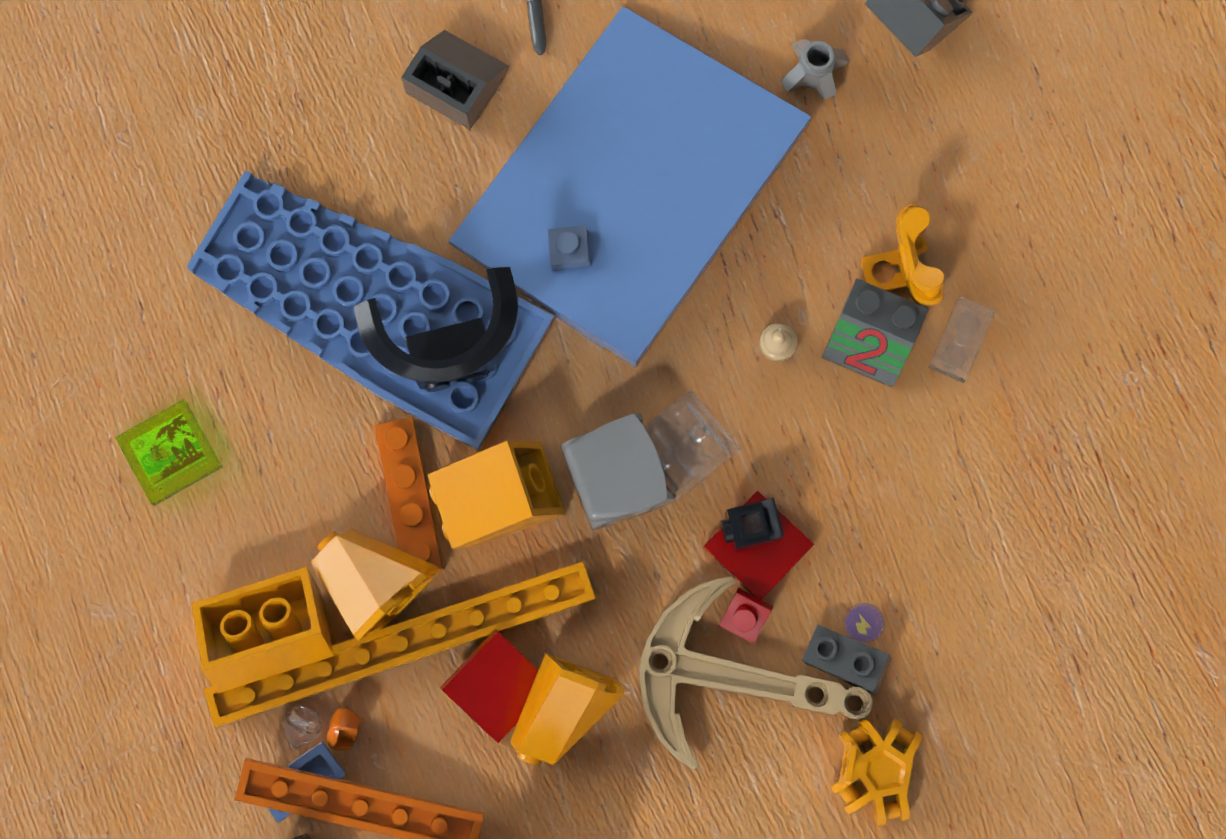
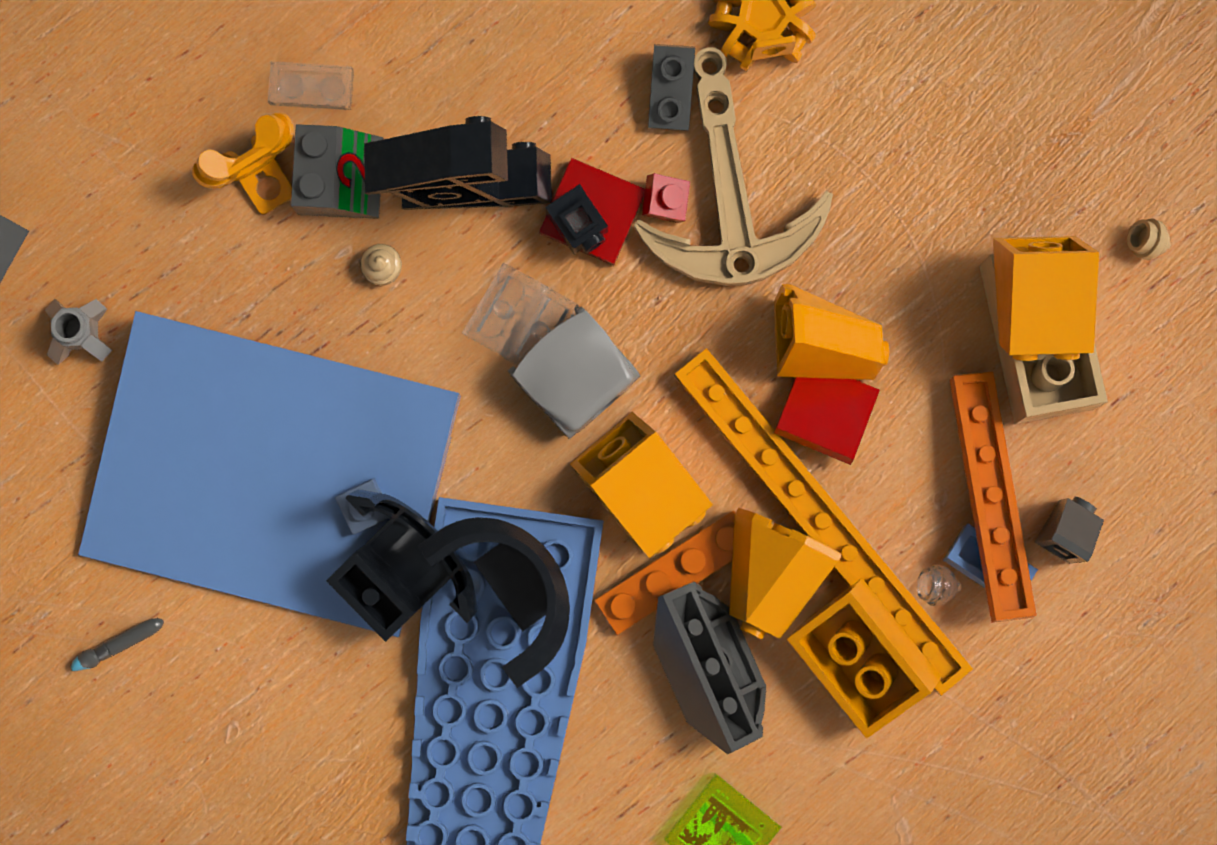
camera: 110 degrees left, 5 degrees up
(310, 493) = (710, 667): none -> dark grey wedge
(343, 729) = (925, 544): orange piece -> none
(453, 77) = (222, 698): dark grey slope -> none
(501, 236) = (389, 574): none -> black piece
(835, 434) = (458, 168): none -> black wedge
(864, 623) = (628, 84): clear tile -> none

